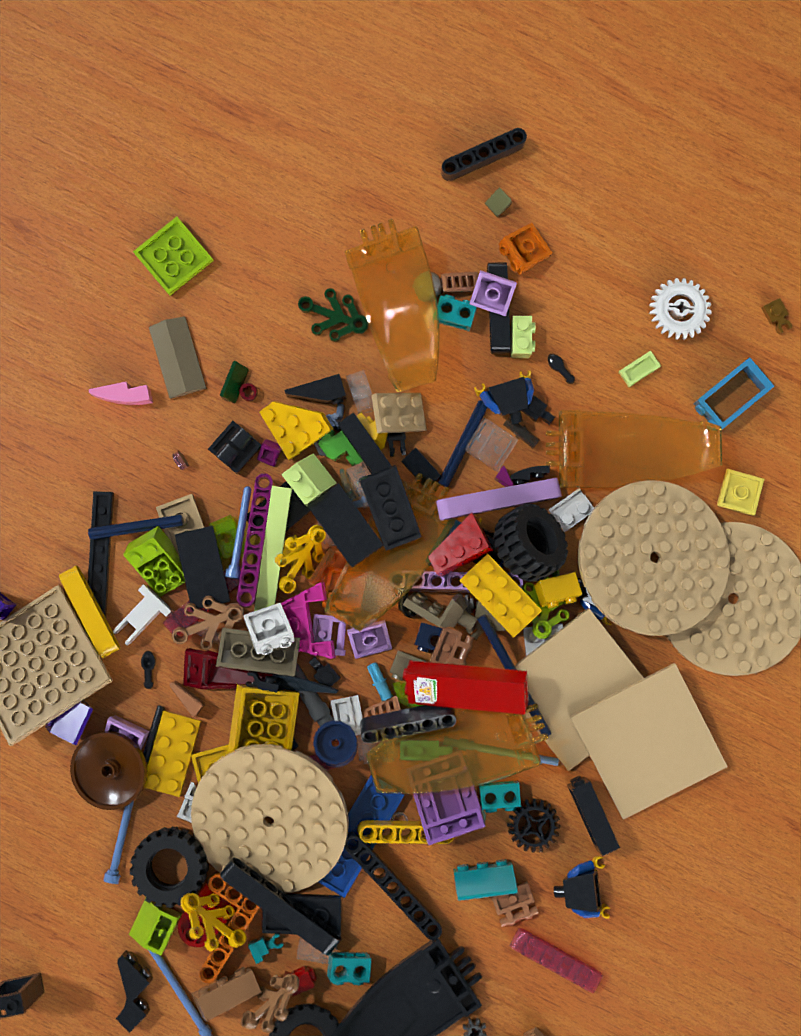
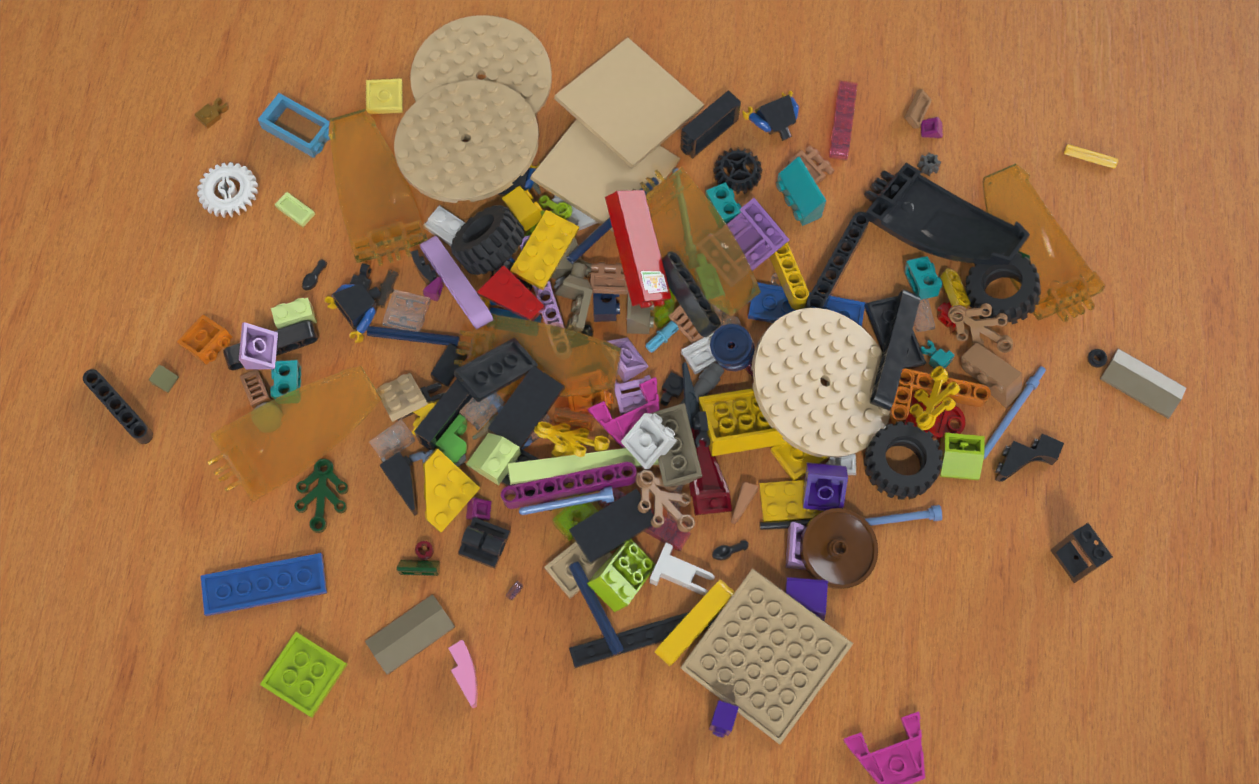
camera: 105 degrees left, 15 degrees down
(169, 780) = (824, 486): none -> dark purple slope
(266, 242) = (263, 584): none -> blue plate
(337, 995) = (954, 288): none -> yellow beam

